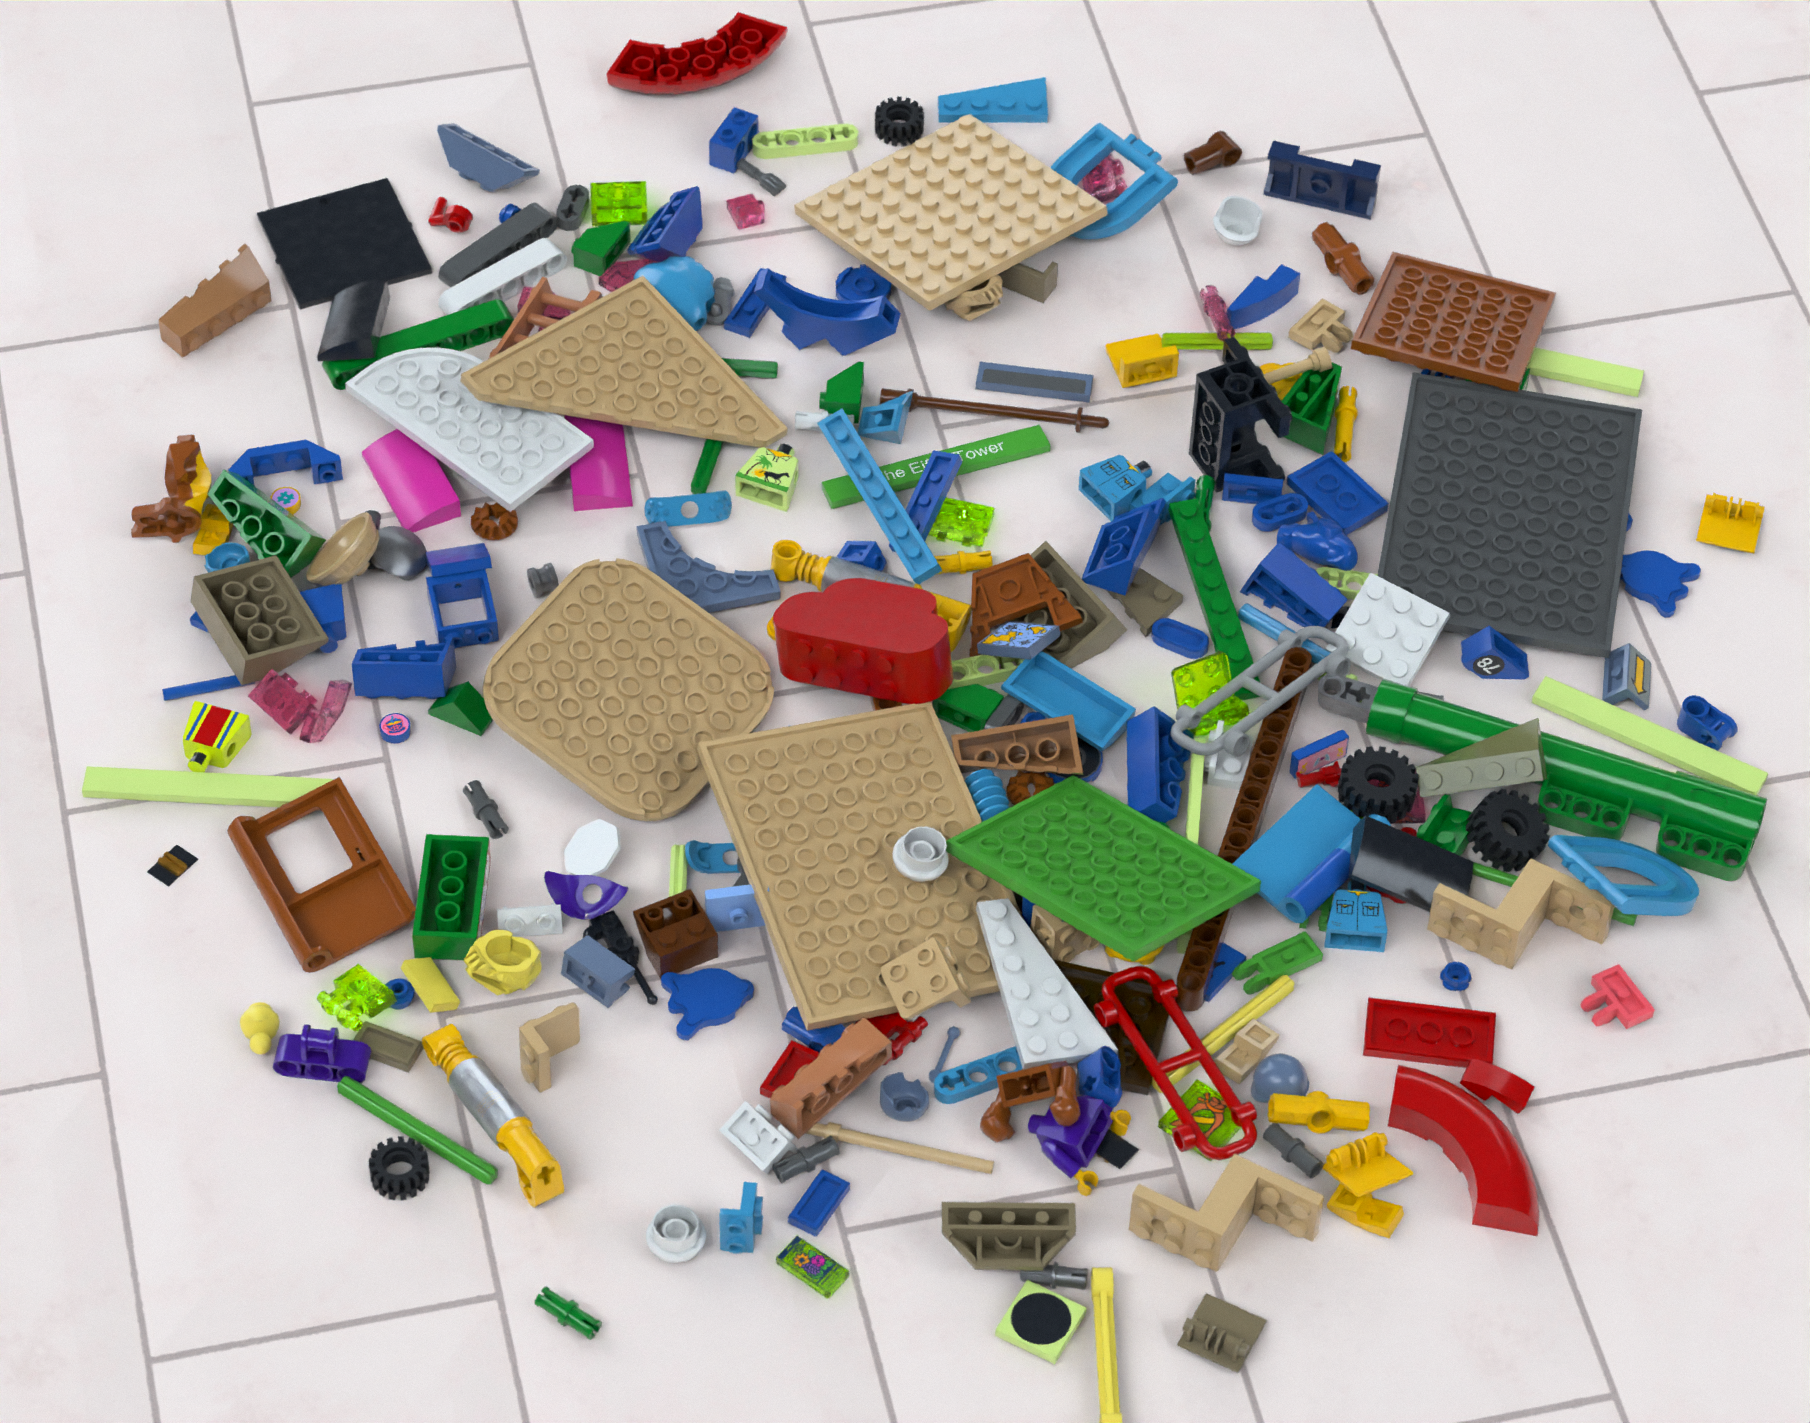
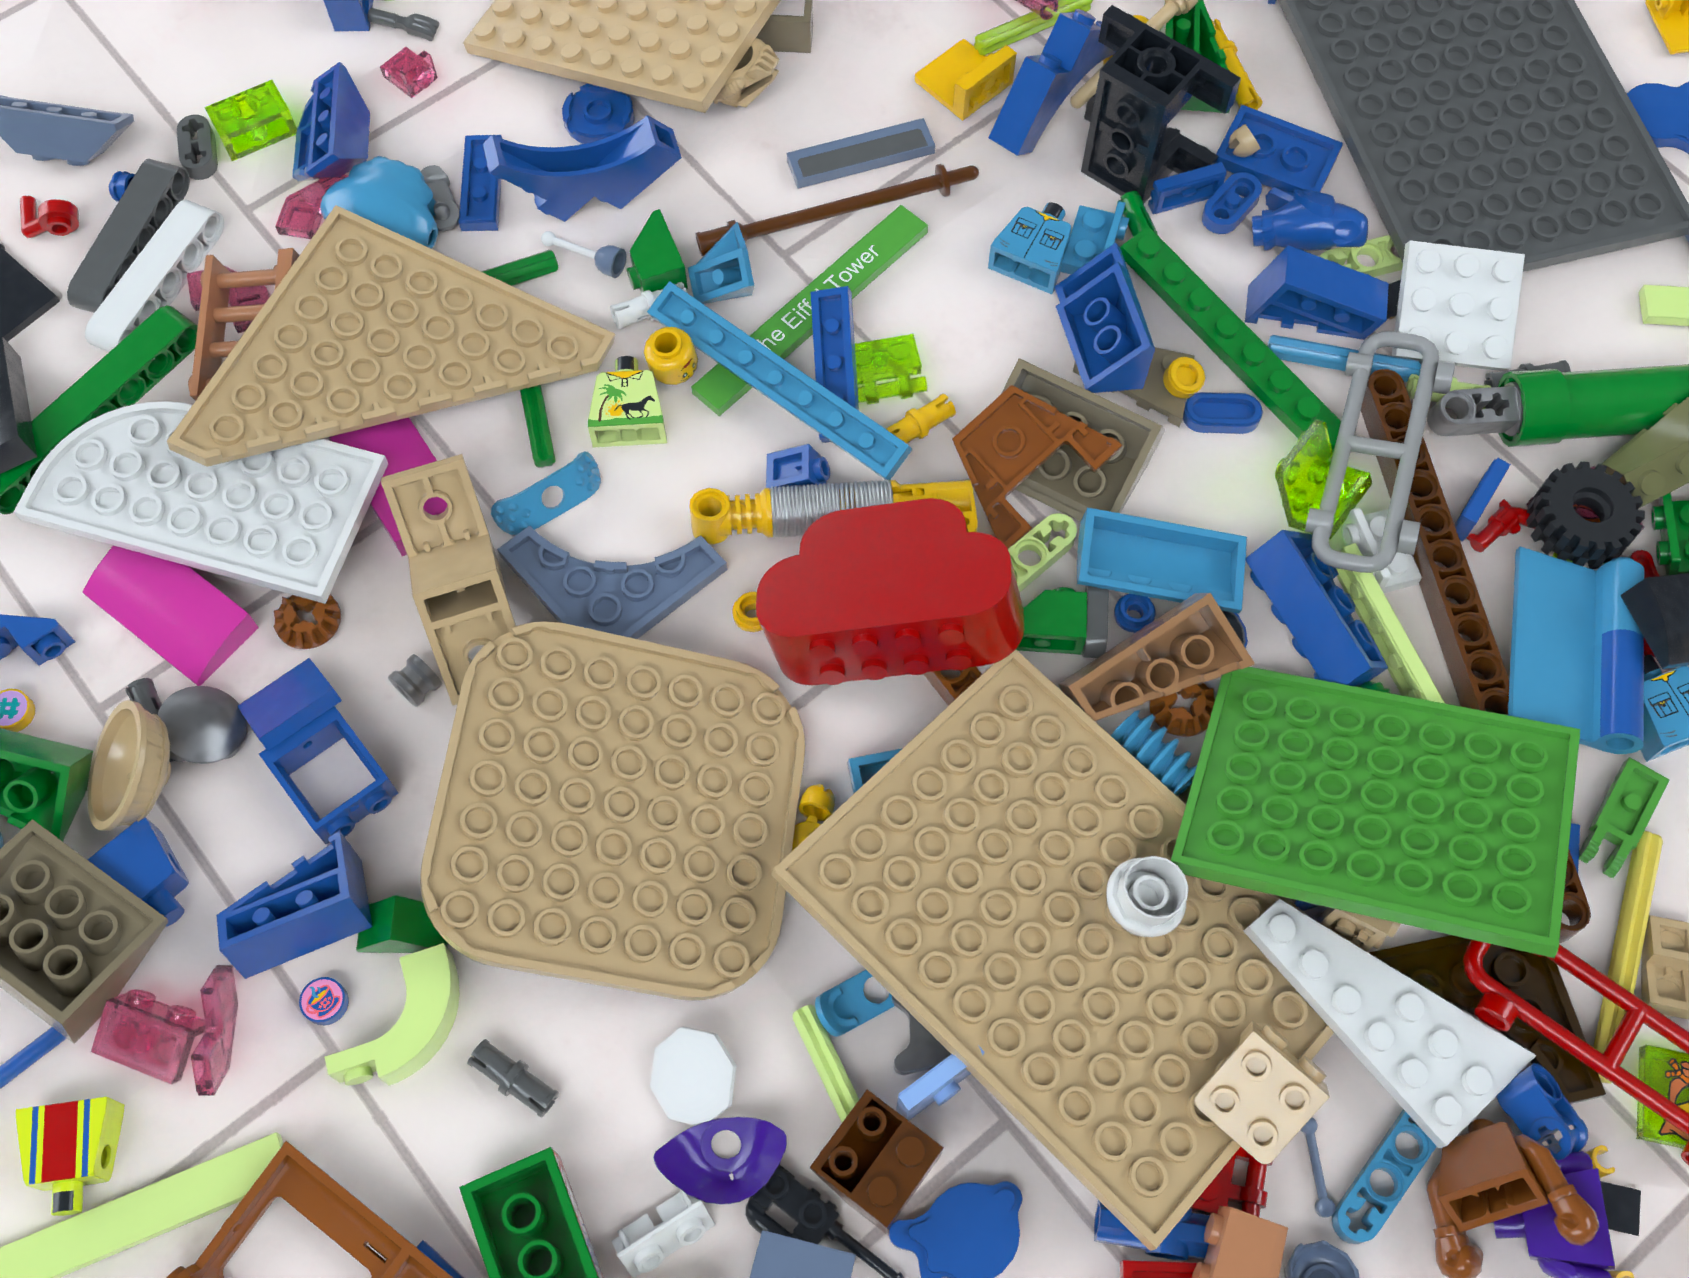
camera: 25 degrees left, 15 degrees up
(440, 763) = (418, 1033): none -> yellowish green arch
(601, 247) = (257, 185): green slope -> none
(604, 516) = (450, 564): none -> tan bracket
(812, 383) = (608, 259): none -> sand blue hinge
(817, 456) = (671, 355): none -> yellow head
(1018, 640) = (1061, 507): tile -> none
(1162, 602) = (1184, 377): none -> yellow tile
(1174, 381) = (1048, 80): none -> blue arch
(1310, 473) = (1243, 142): none -> tan hinge
(1493, 656) = (1576, 286): blue slope -> none

